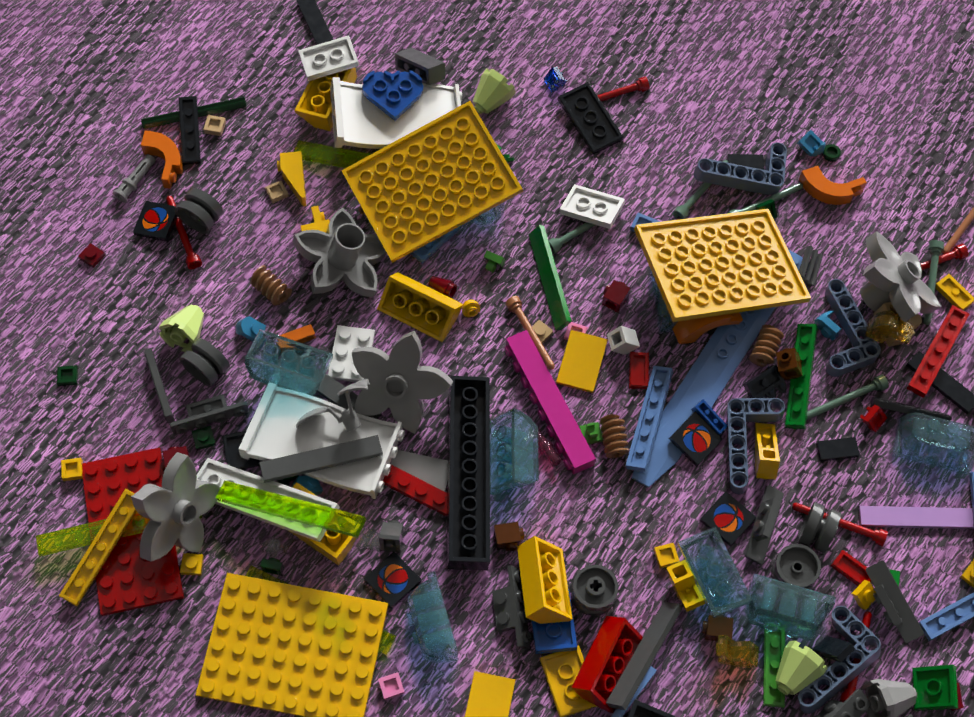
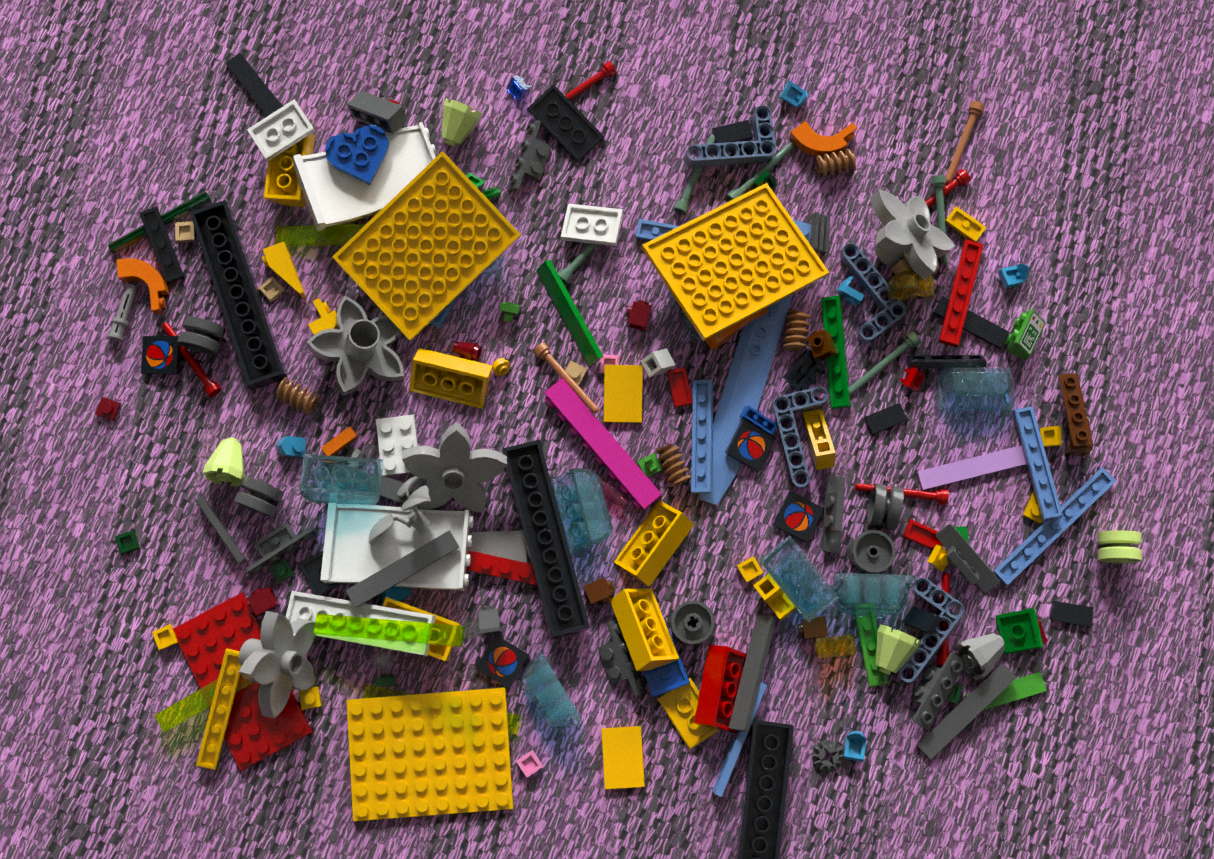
camera: 15 degrees left, 15 degrees up
(244, 188) = (238, 295): none -> black brick
(551, 139) = (531, 157): none -> dark grey bracket
(576, 505) = (654, 543): none -> yellow slope
(831, 152) = (815, 98): dark green tile -> none
(838, 208) = (833, 162): none -> medium nougat piece

